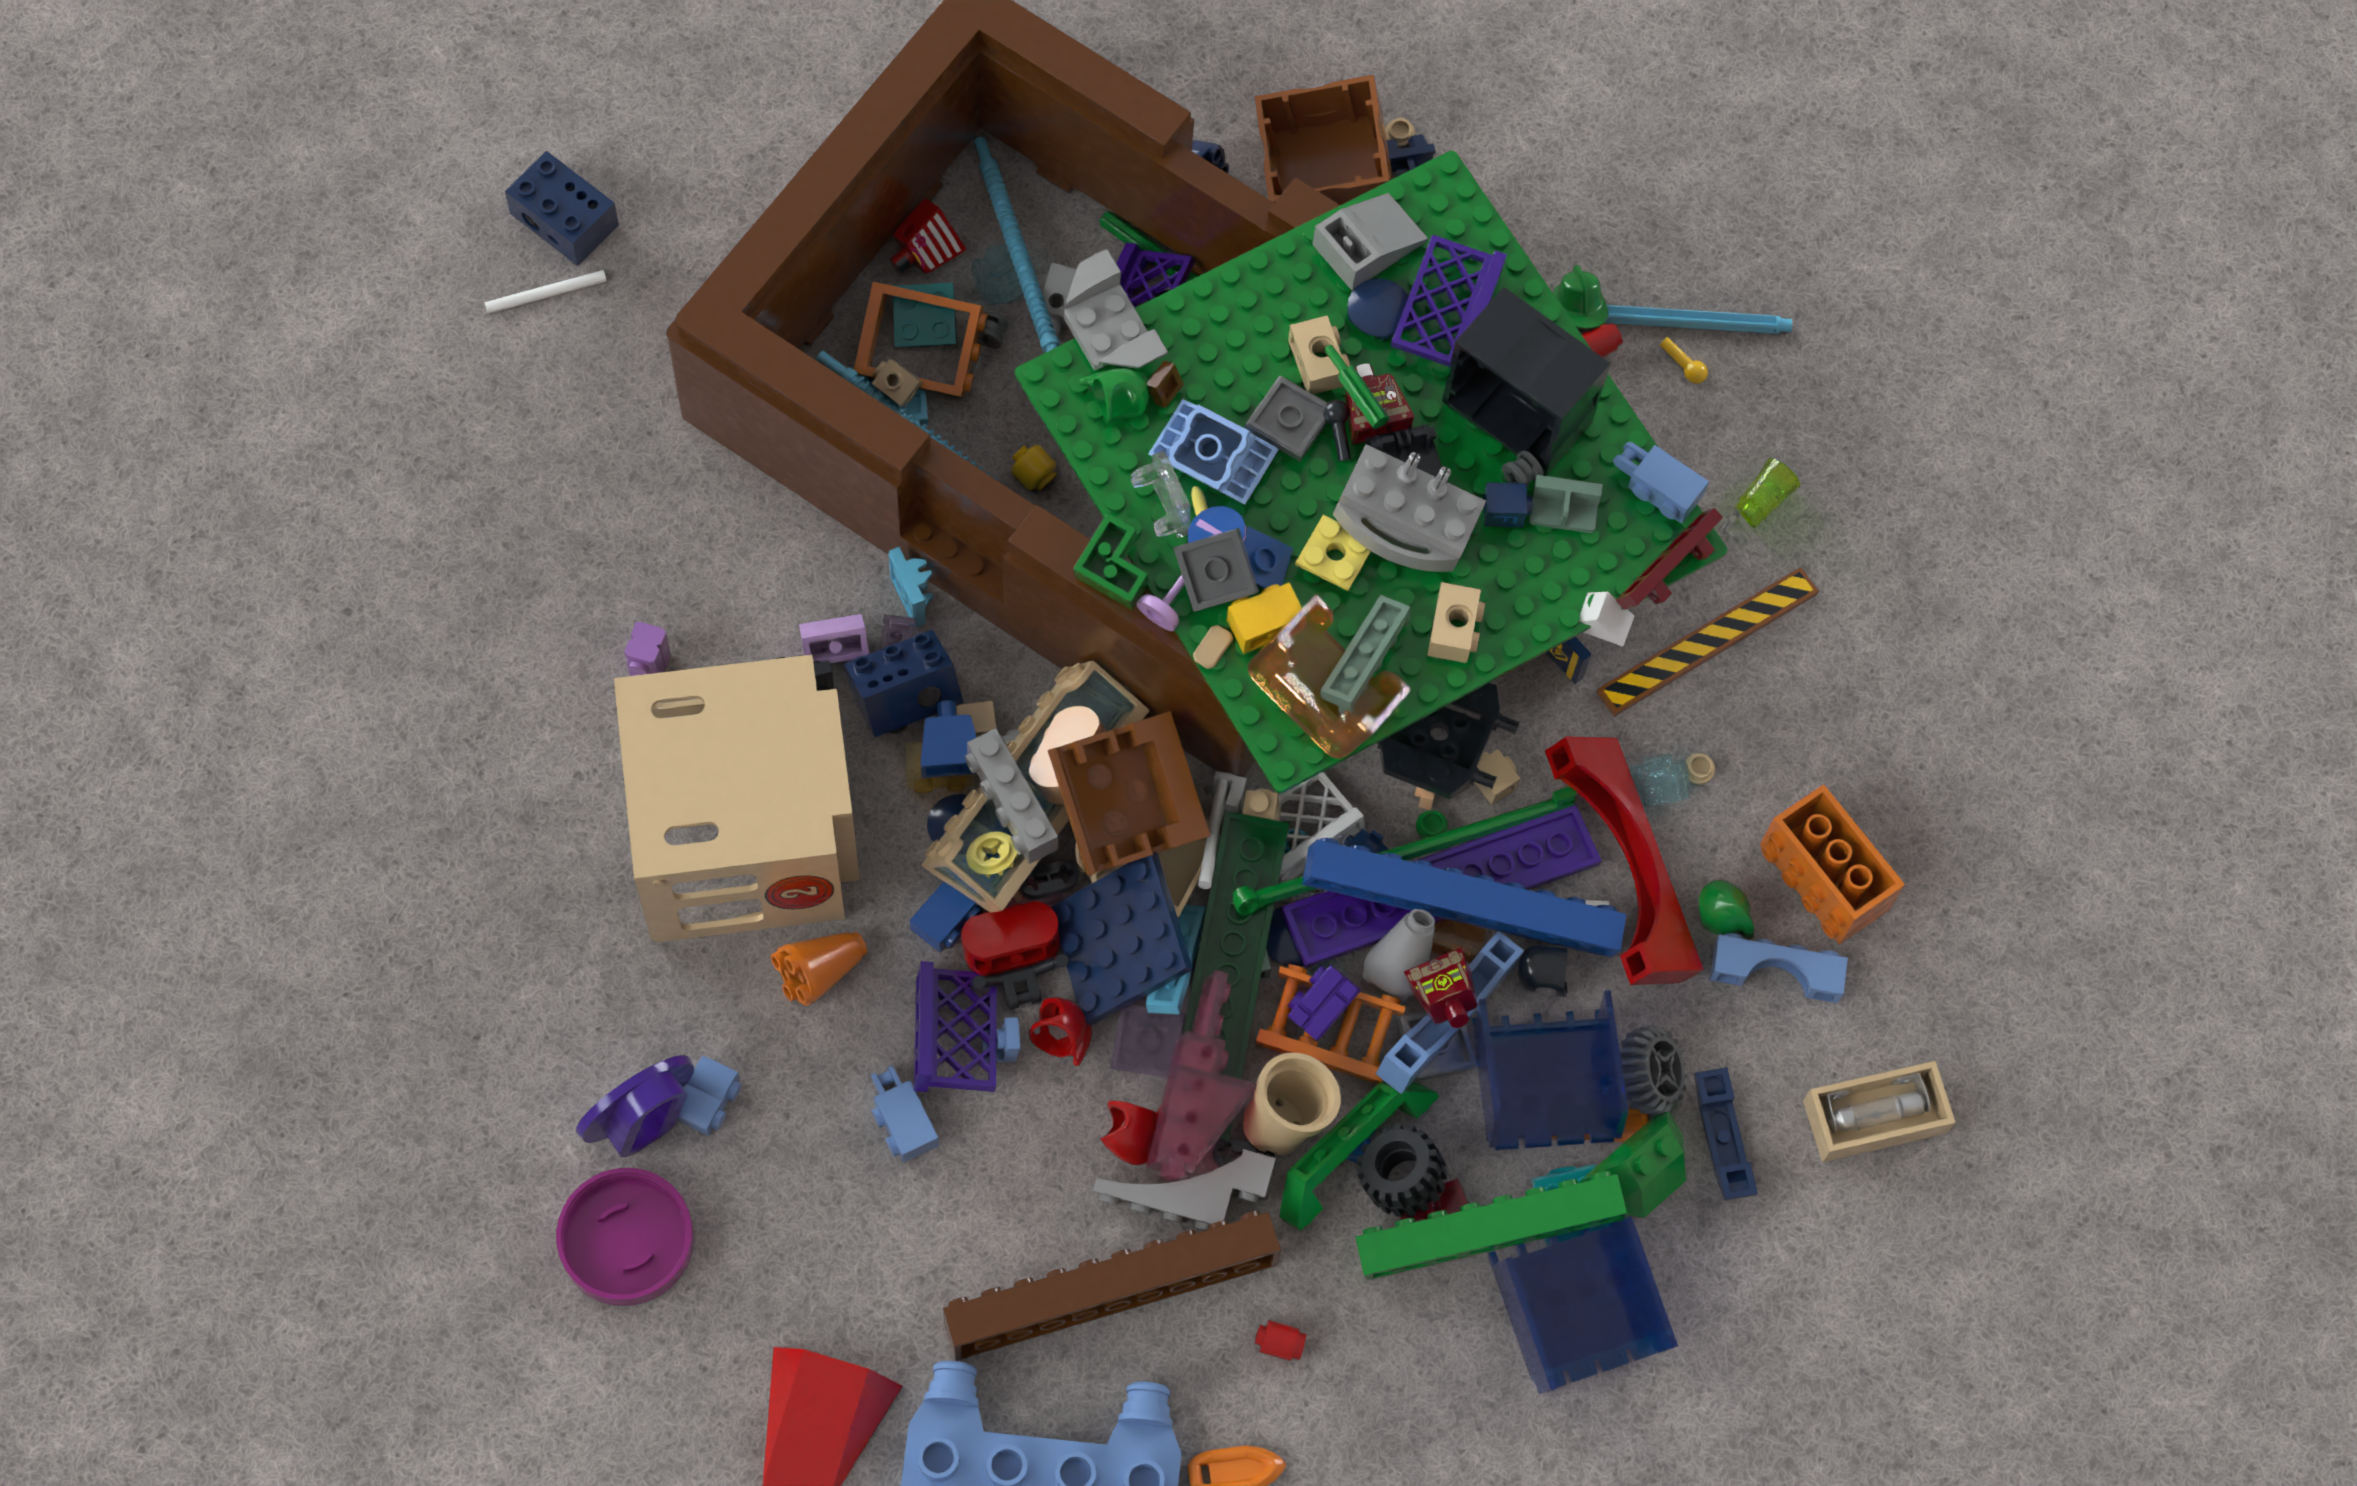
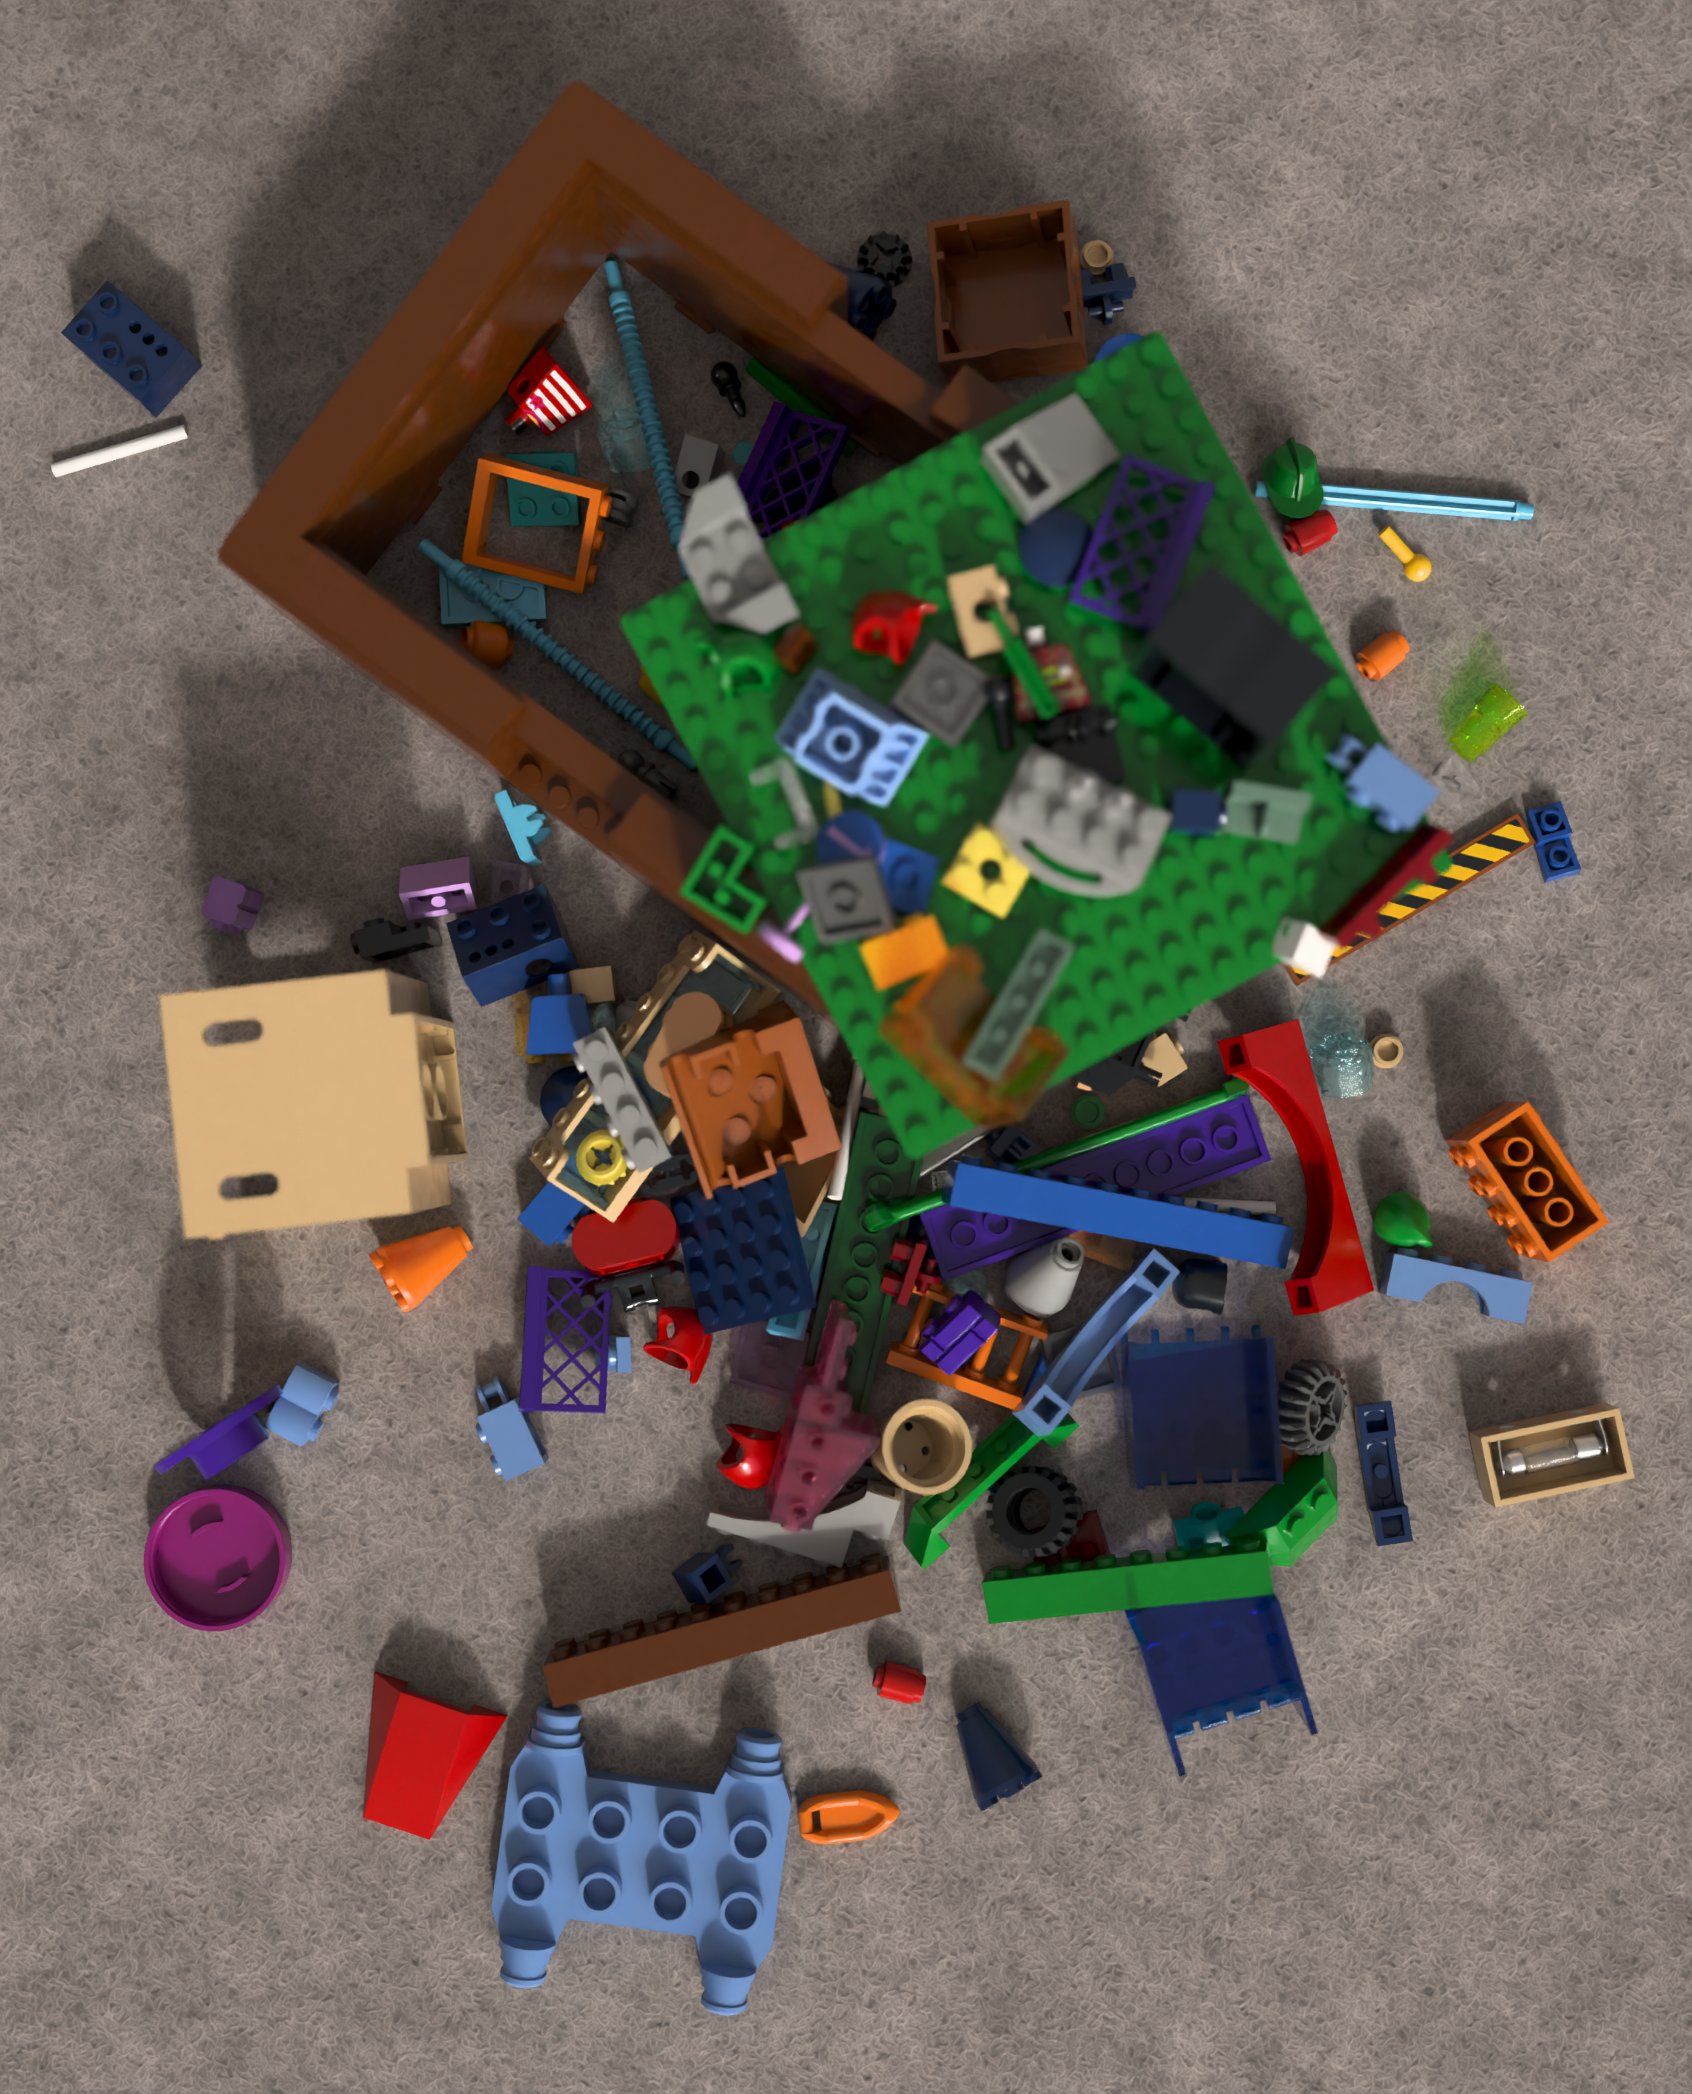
camera: 10 degrees right, 20 degrees up
(896, 382) = (508, 579): tan brick -> none
(1082, 231) = (726, 379): none -> black bar
(1092, 1239) = (706, 1575): none -> dark blue brick
(1212, 646) = (842, 982): tan piece -> none
(1231, 135) = (888, 243): none -> black gear
(1245, 360) = (895, 616): none -> red piece
(1268, 963) = (902, 1284): none -> dark red hips
(1374, 1405) = (992, 1757): none -> dark blue cone
(1444, 988) = (1092, 1323): dark red torso -> none
(1451, 641) = (1110, 980): tan brick -> none
(1523, 469) = (1217, 768): dark grey wheel -> none
(1673, 436) = (1382, 655): none -> orange brick
(1834, 591) = (1552, 846): none -> blue slope

